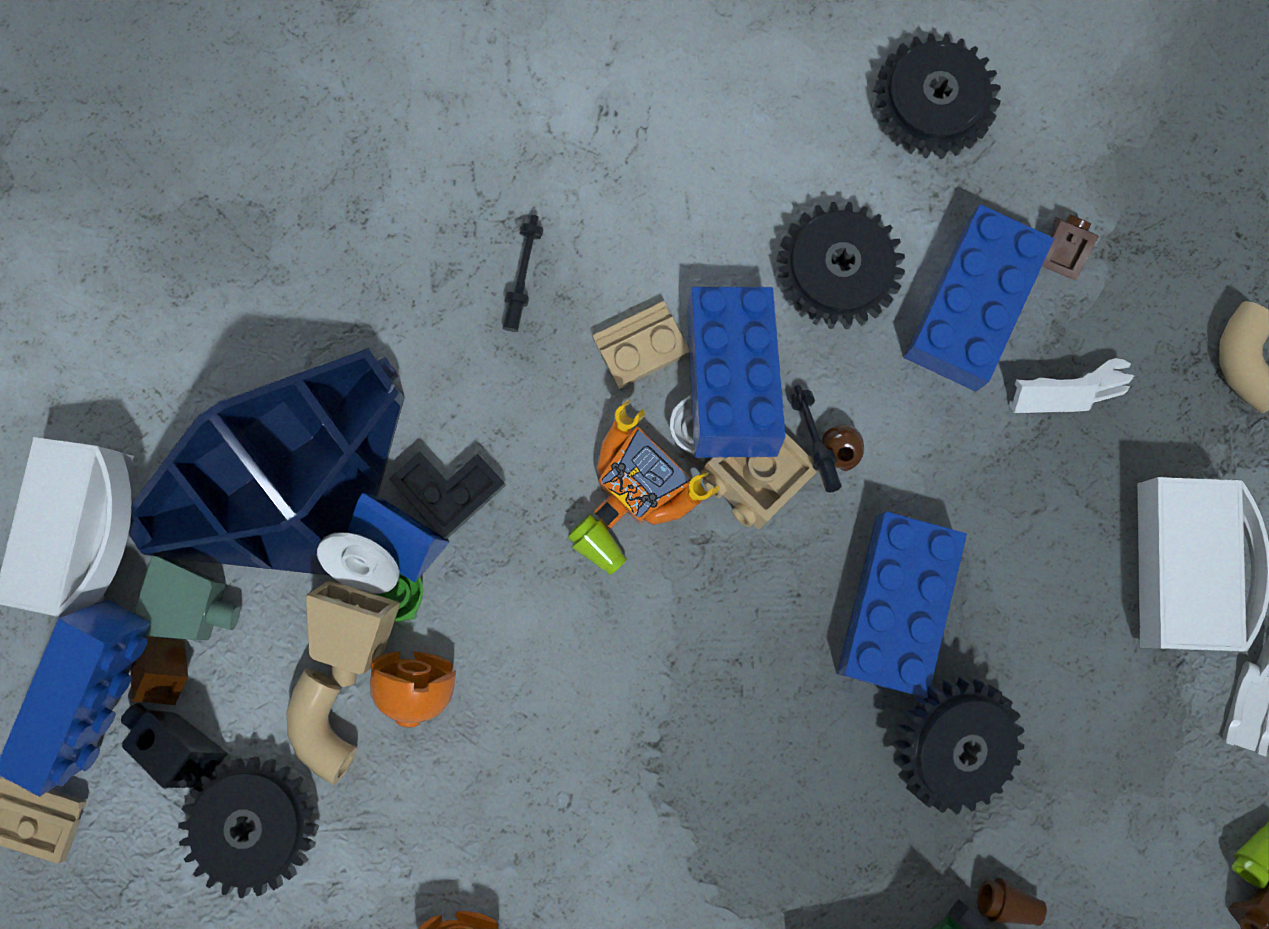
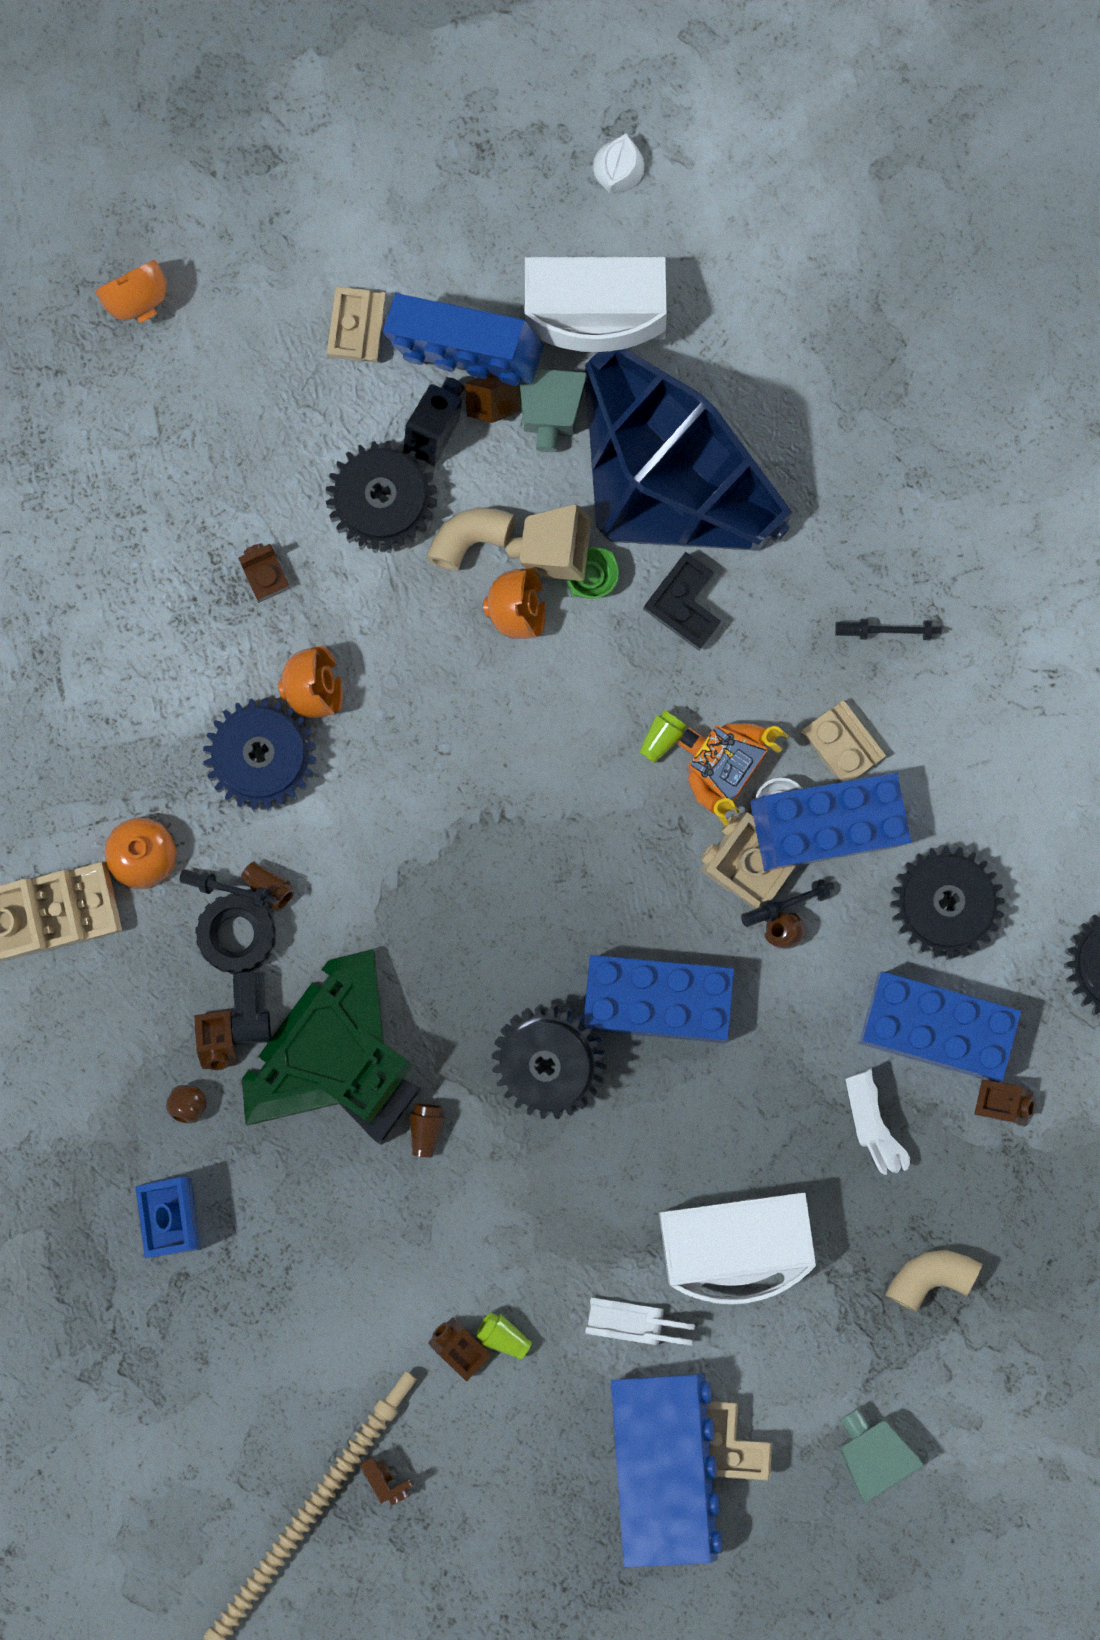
camera: 80 degrees right, 0 degrees up
(358, 562) = (609, 540): white dish -> none
(402, 536) = (637, 566): blue slope -> none

